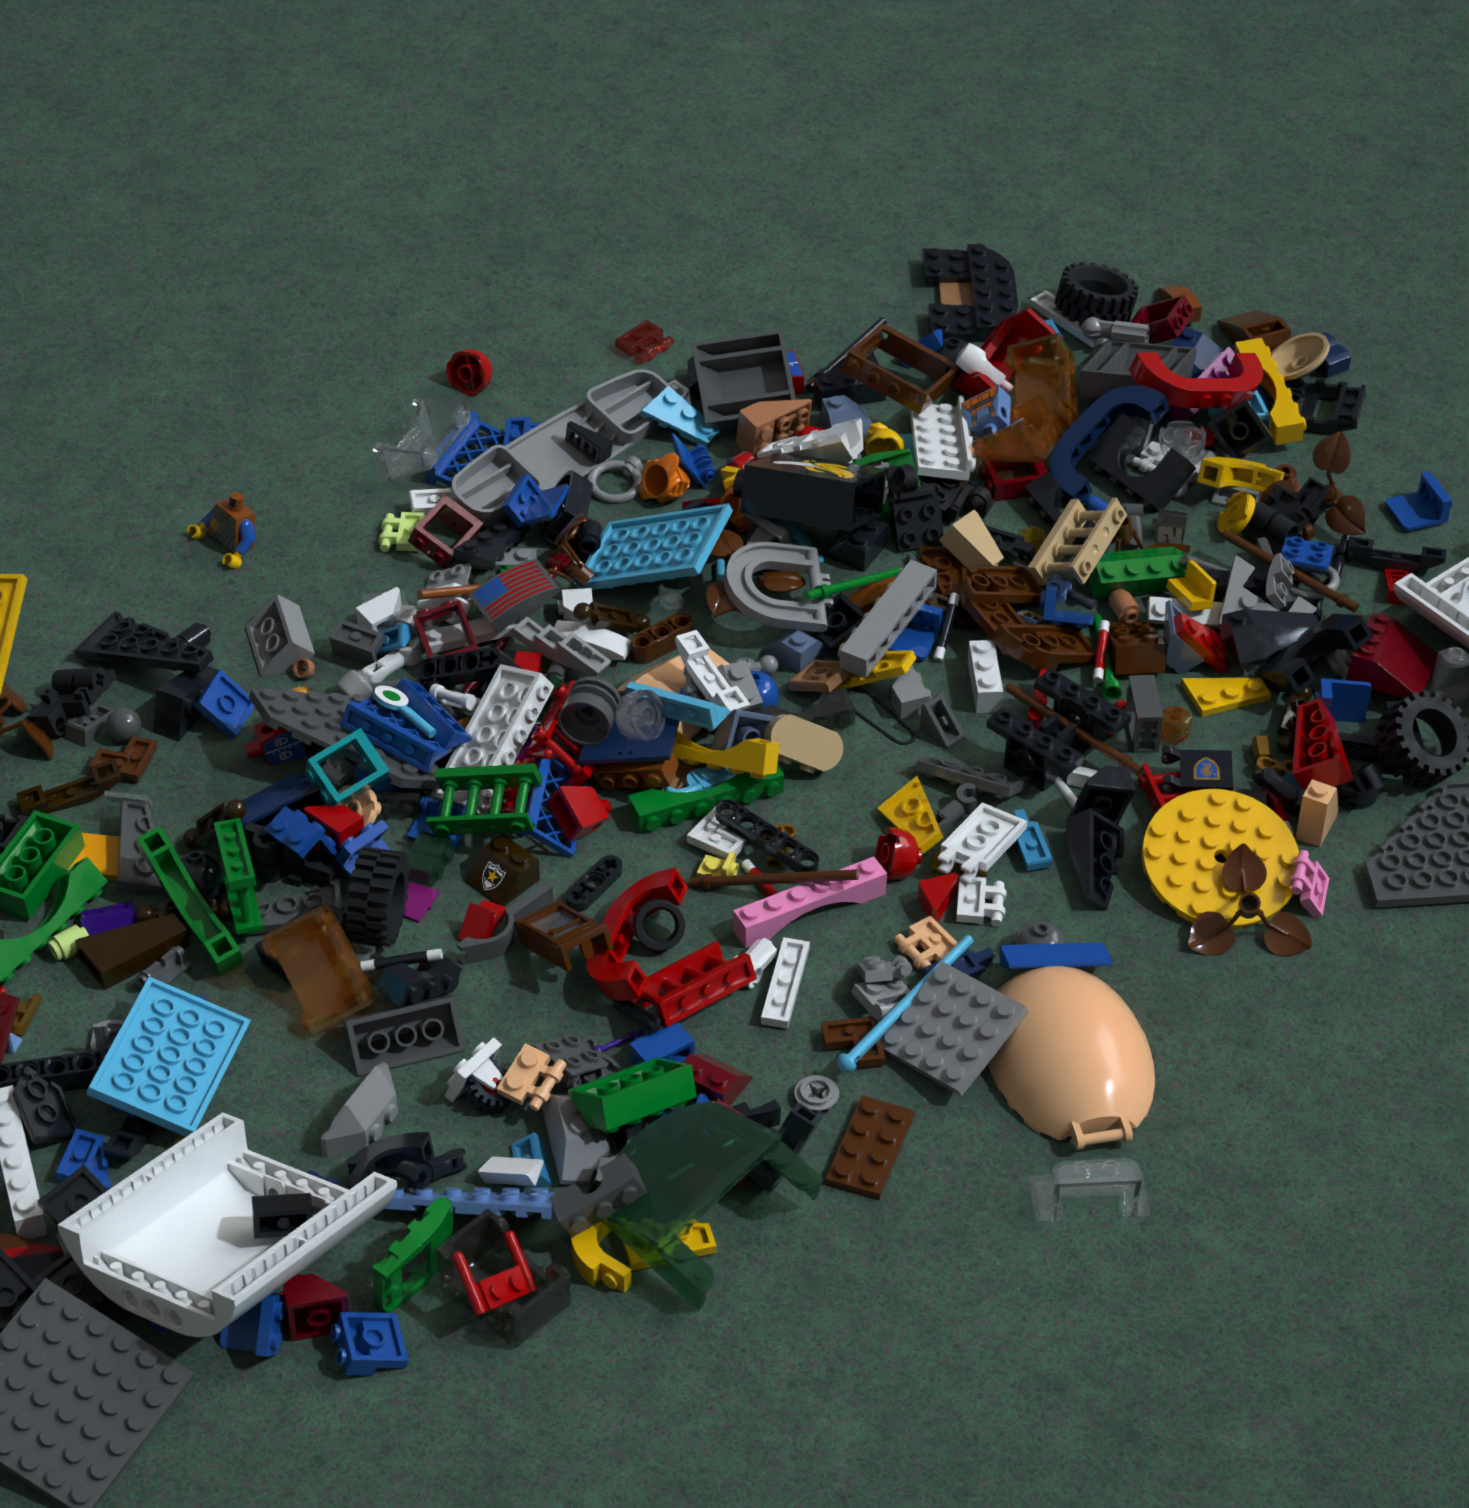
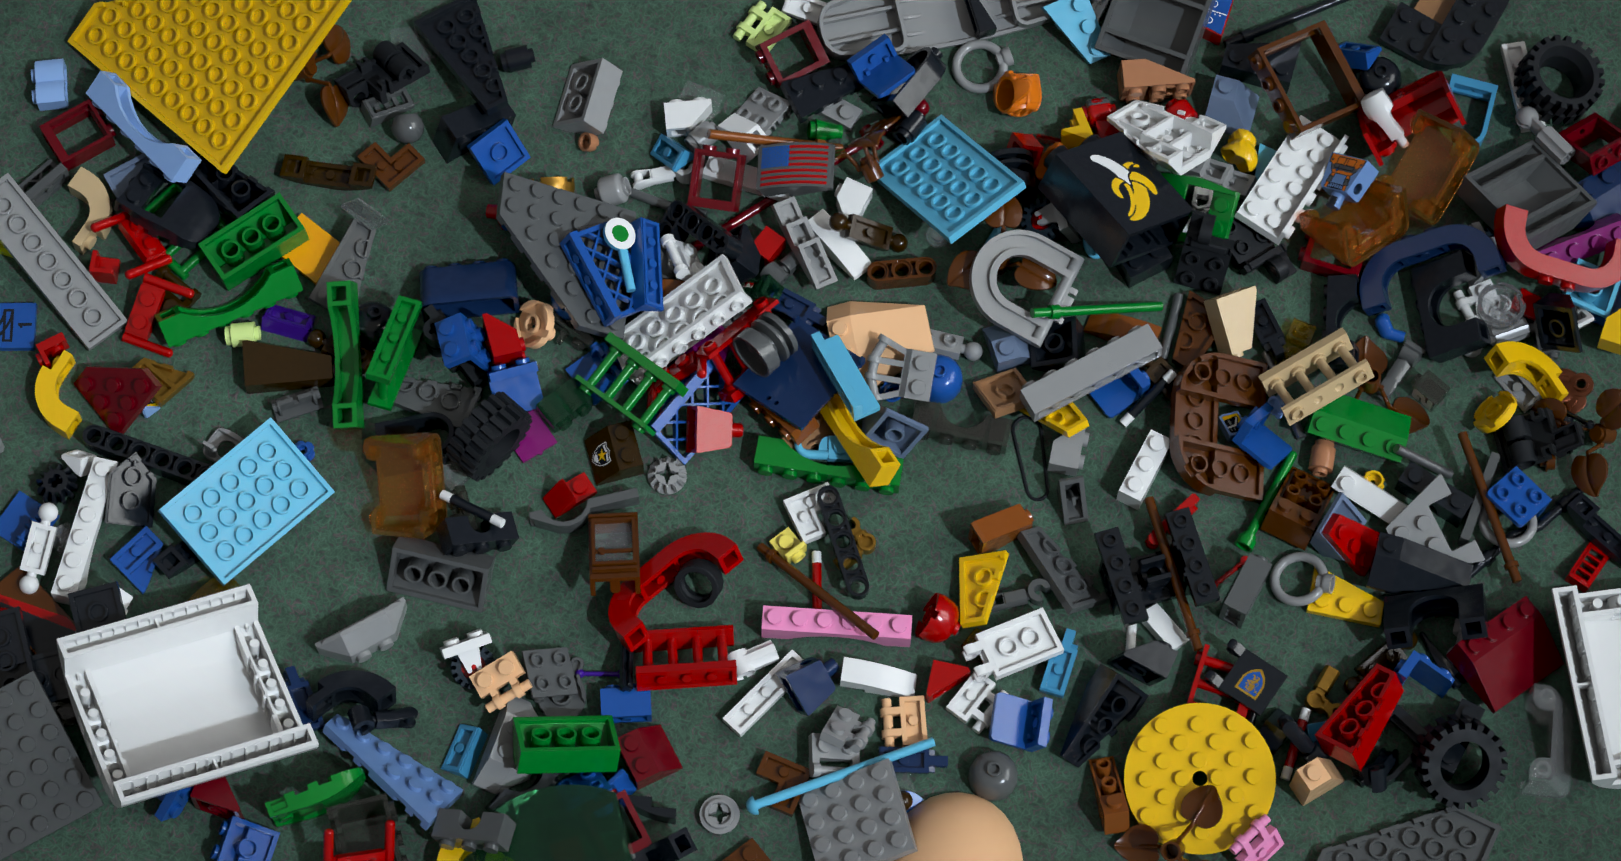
camera: 30 degrees right, 25 degrees up
(205, 830) = (410, 284): dark brown plate -> none
(280, 1214) = (235, 709): black brick -> none
(355, 642) = (643, 139): dark grey panel -> none
(367, 753) = (558, 292): teal window -> none
(511, 1171) = (441, 752): white slope -> none
(559, 876) = (658, 481): none -> light grey gear
(596, 873) = (663, 504): black beam -> none
(640, 715) = (801, 375): clear cylinder -> none
(695, 461) = (1056, 85): blue hinge -> none
(706, 675) = (891, 358): white slope -> none
(804, 743) = (934, 463): tan brick -> none
(820, 953) = (808, 683): none -> dark blue torso
(874, 923) = (877, 678): none -> white slope
(894, 769) = (999, 528): none -> dark orange slope
(1038, 895) = (1021, 722): none -> bracket
(1054, 955) = (989, 799): blue slope -> none
(1101, 651) = (1262, 499): red bar -> none
(1158, 913) = (1109, 795): none -> dark orange slope
(1176, 724) = (1268, 620): clear orange head -> none
(1195, 589) = (1384, 481): yellow panel -> none
(1202, 682) = (1324, 581): none -> light grey piece
(1278, 579) = (1470, 511): light grey slope -> none

